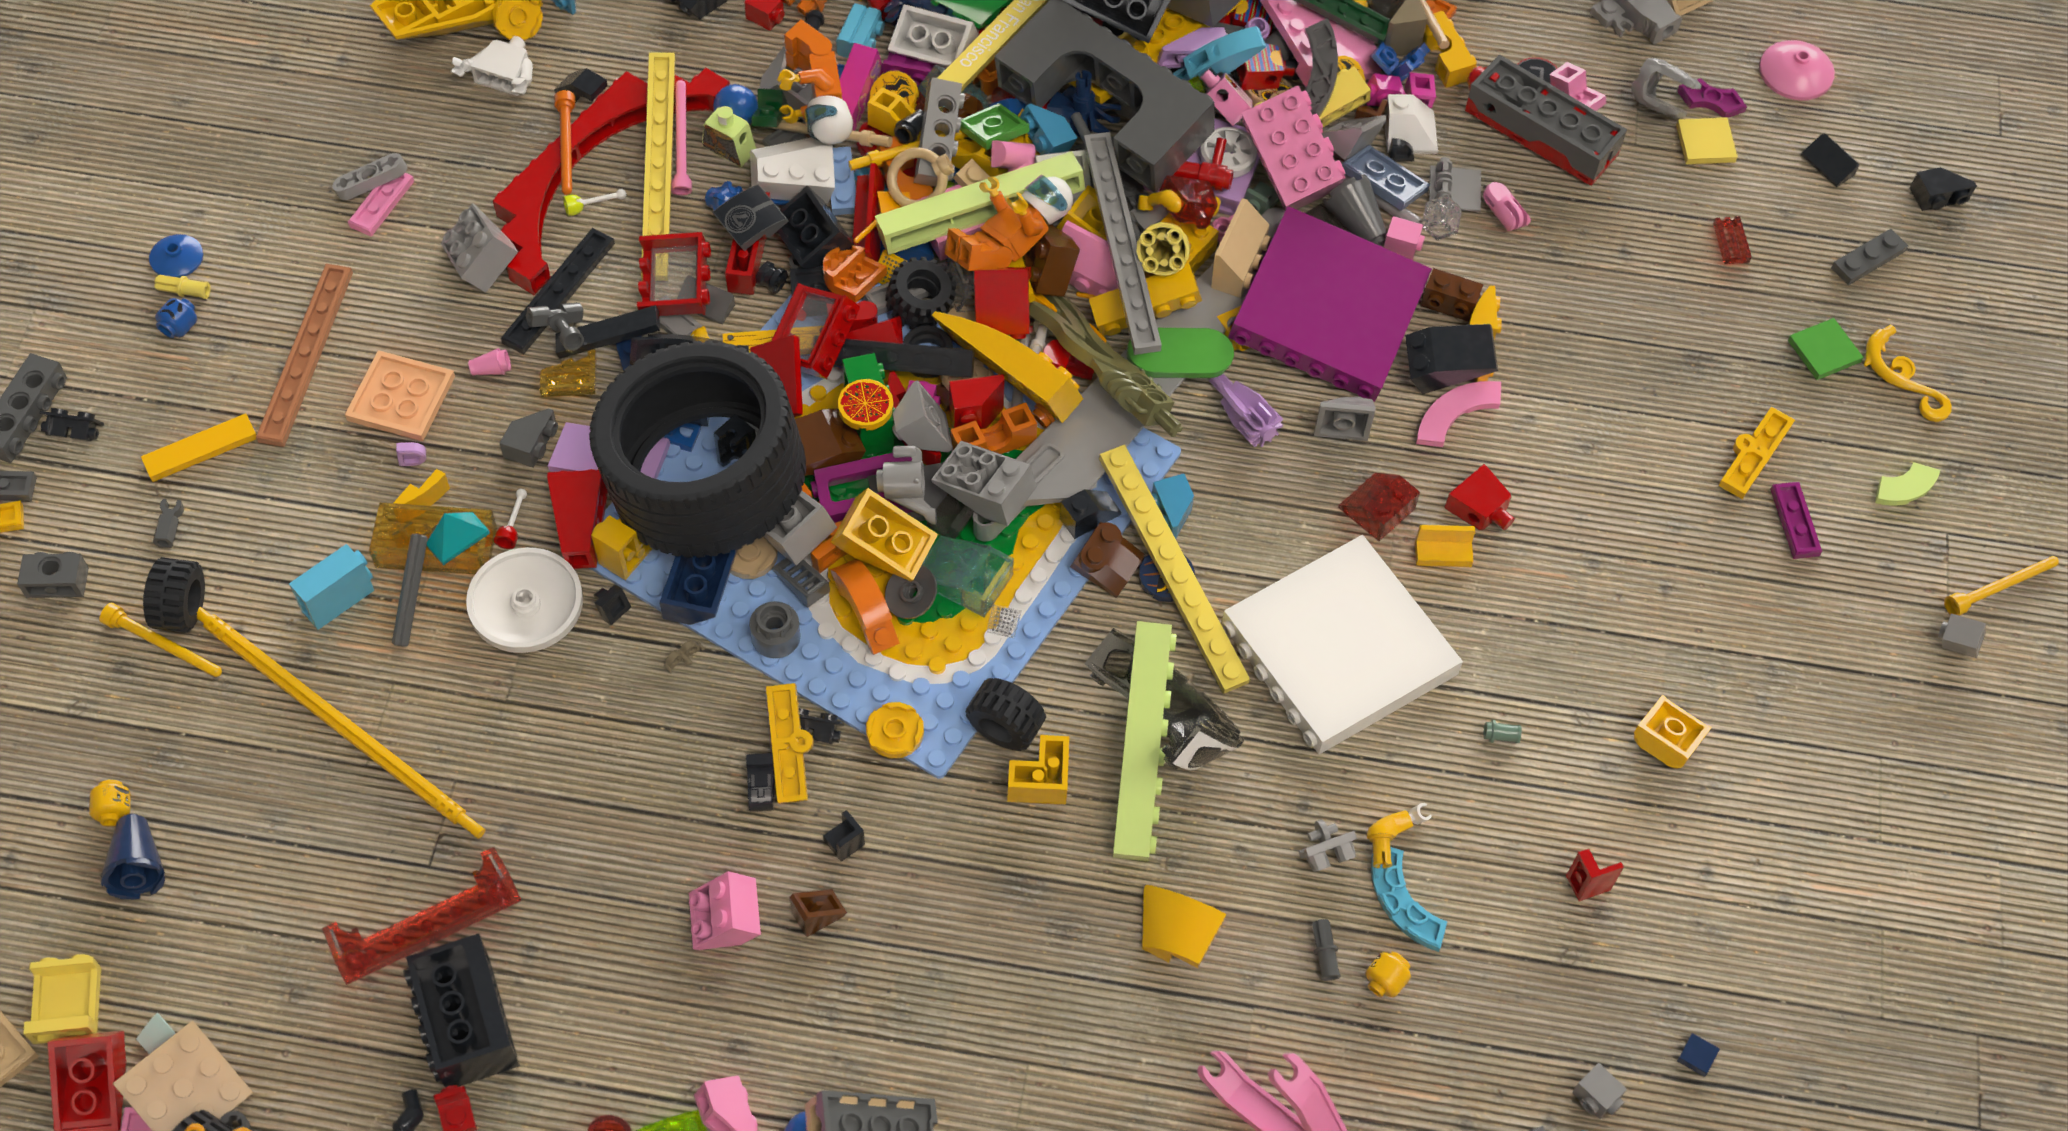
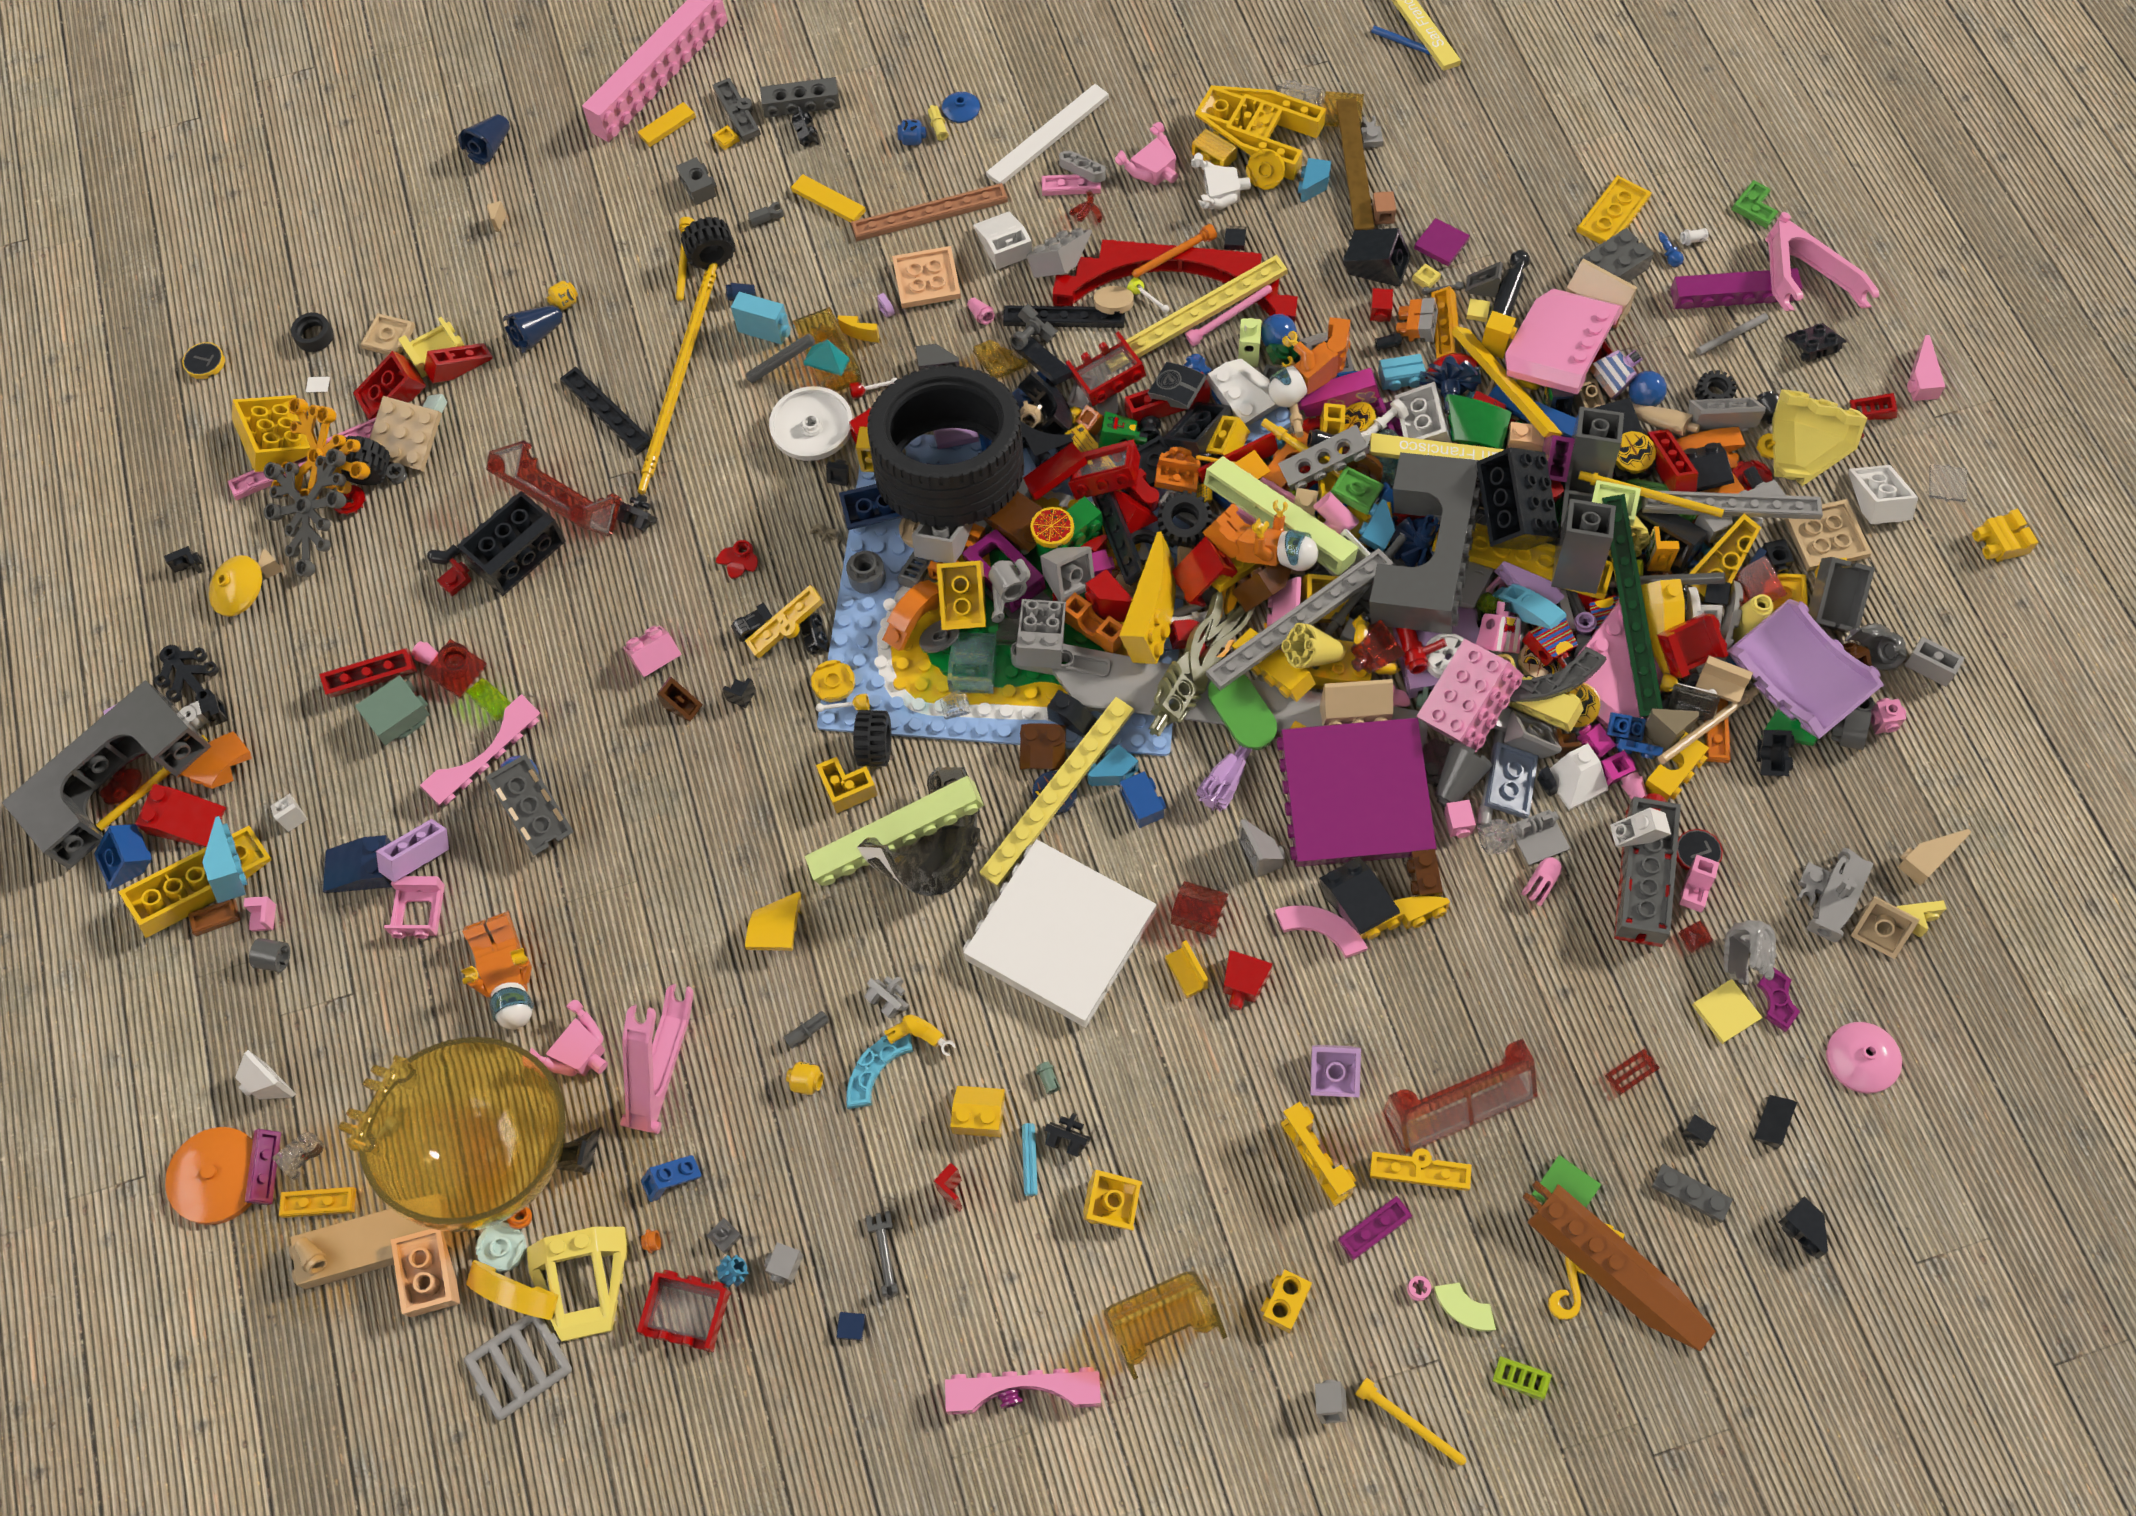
camera: 70 degrees right, 5 degrees up
(112, 978) = (455, 361): none -> red slope
(263, 600) = (733, 288): none -> dark blue cone
(293, 192) = (1047, 135): none -> white tile
(324, 827) = (606, 410): none -> black tile
(409, 294) = (1004, 239): none -> white slope
(419, 108) = (1154, 161): none -> bright pink torso
(436, 198) = (1085, 207): none -> clear red piece
(442, 48) = (1214, 148): none -> yellow brick
(524, 844) = (643, 518): none -> black hips
(576, 231) = (1113, 299): none -> tan tile
(657, 768) = (737, 561): none -> red plate
(718, 323) = (1090, 420): none -> orange slope
(760, 305) = (1119, 429): none -> green torso
(842, 206) = (1228, 436): none -> yellow slope
(912, 51) = (1397, 409): none -> white piece
(941, 165) = (1288, 474): tan piece -> none
(945, 711) = (859, 702): none -> hinge
(1226, 495) = (1142, 799): none -> blue brick
(1450, 90) = (1634, 785): none -> bright pink cone
(1509, 815) = (977, 1111): none -> yellow slope
(1513, 93) = (1640, 828): none -> white slope
(1586, 792) = (1029, 1159): none -> medium azure axle
(1587, 735) = (1056, 1132): none -> black hips
(1597, 976) = (890, 1289): none -> dark grey hinge
(1621, 469) = (1335, 1071): none -> lavender slope
(1626, 120) = (1696, 936): none -> clear red tile
(1682, 528) = (1336, 1182): none -> yellow piece
(1702, 327) = (1463, 1104): none -> windscreen
(1804, 740) = (1160, 1313): none -> clear yellow windscreen
(1814, 220) = (1699, 1131): none -> black slope
(1827, 962) = (969, 1394): none -> bright pink arch
(1845, 927) = (1010, 1398): none -> magenta bush
(1847, 623) = (1291, 1303): none -> yellow brick
(1874, 520) = (1426, 1286): none -> bright pink bush
(1920, 345) = (1617, 1267): none -> dark orange hinge
(2005, 459) = (1524, 1369): none -> lime slope

